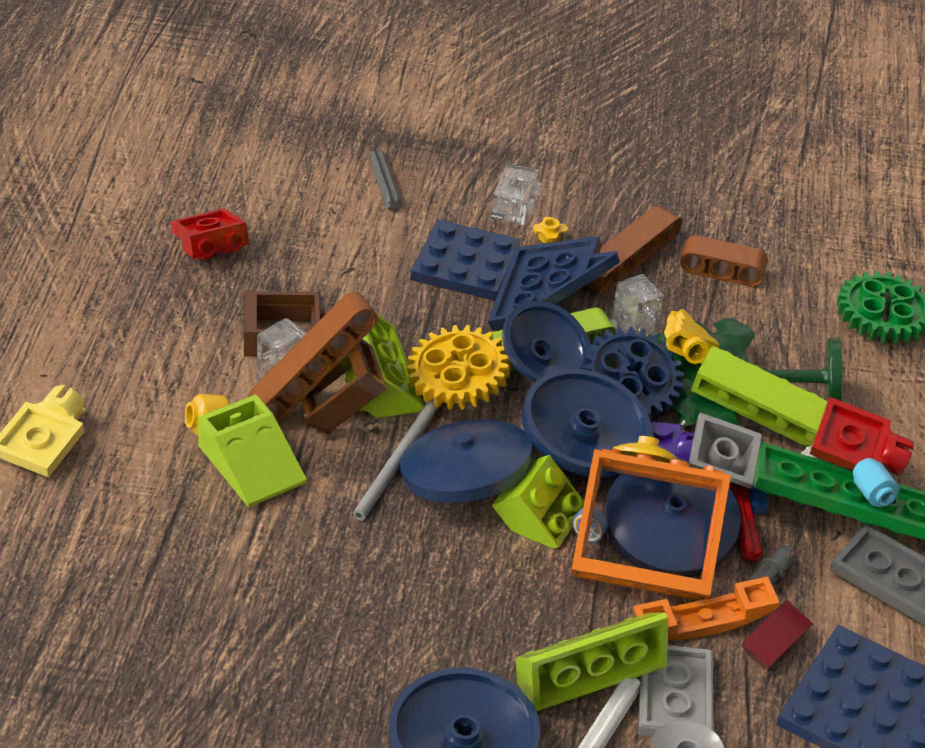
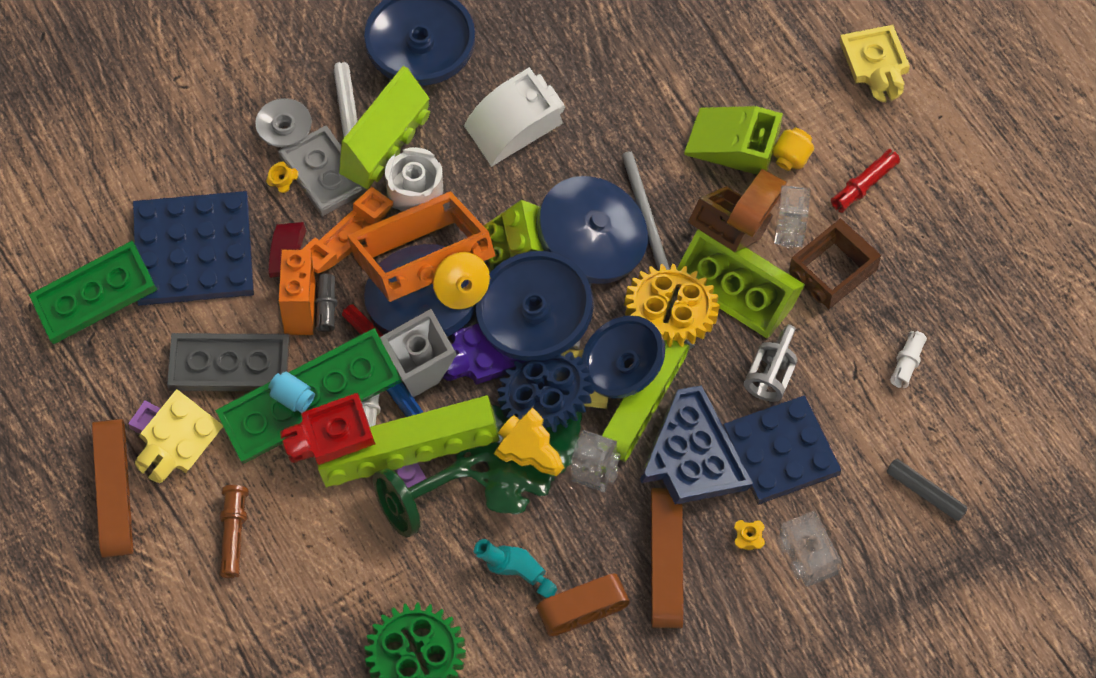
camera: 145 degrees right, 20 degrees up
(176, 362) = (858, 186): none -> red pin
(211, 233) = (978, 310): red plate -> none
(301, 243) = (908, 359): none -> white pin
(406, 293) = (777, 357): none -> light grey piece
(437, 594) = (514, 116): none -> white piece
(597, 597) = (413, 178): none -> white brick
(729, 706) = (277, 172): none -> yellow plate
(757, 313) = (515, 561): none -> teal arm
(806, 561) = (297, 292): none -> orange window

